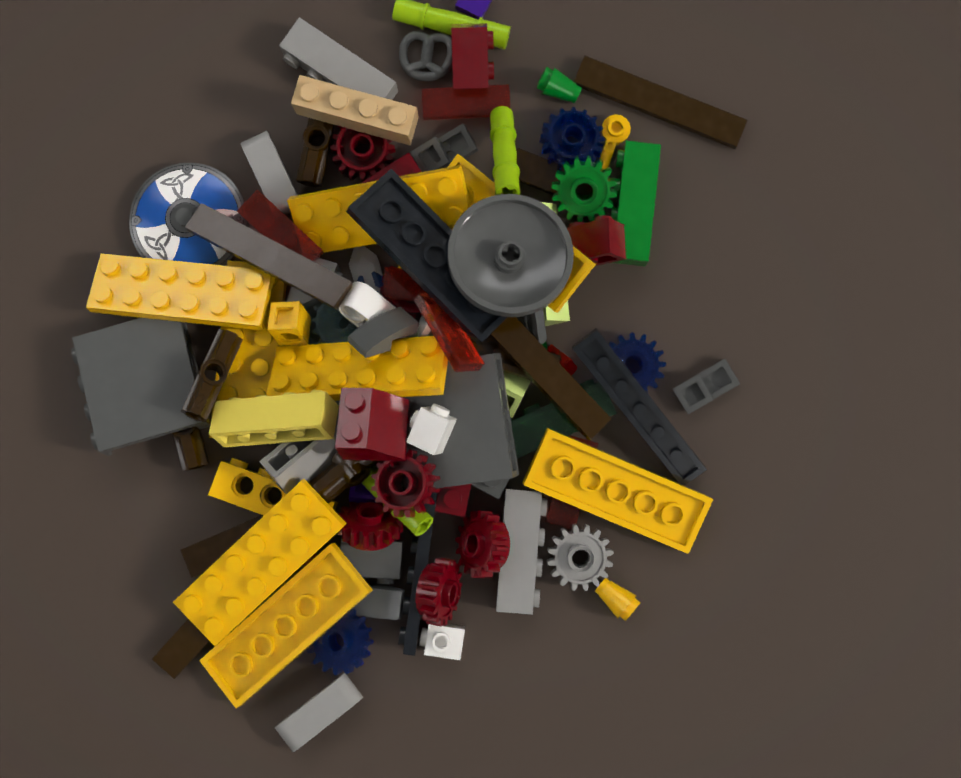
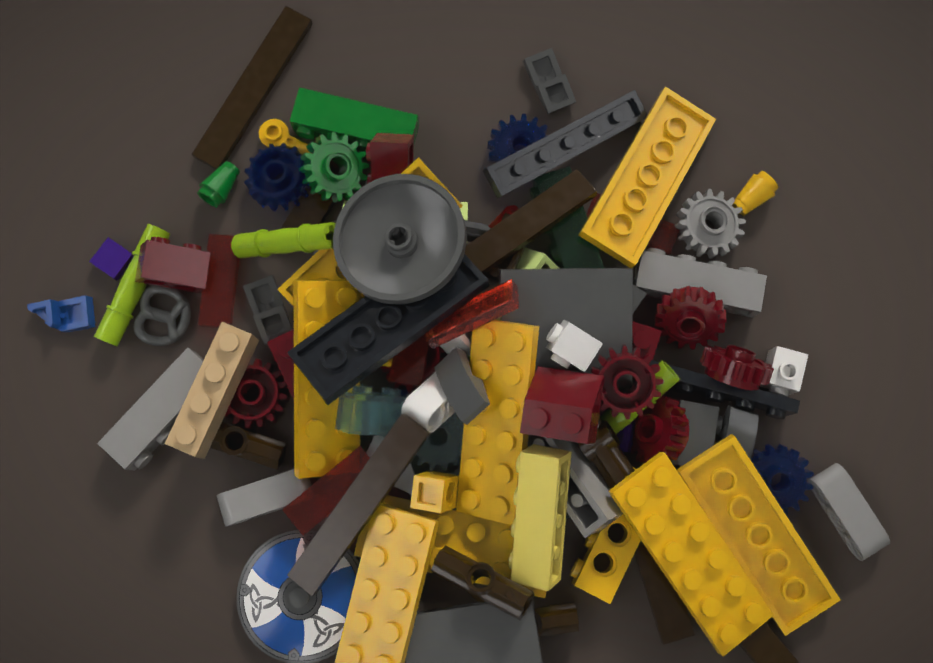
camera: 85 degrees left, 5 degrees down
(354, 254) = (369, 412): none -> clear light blue brick

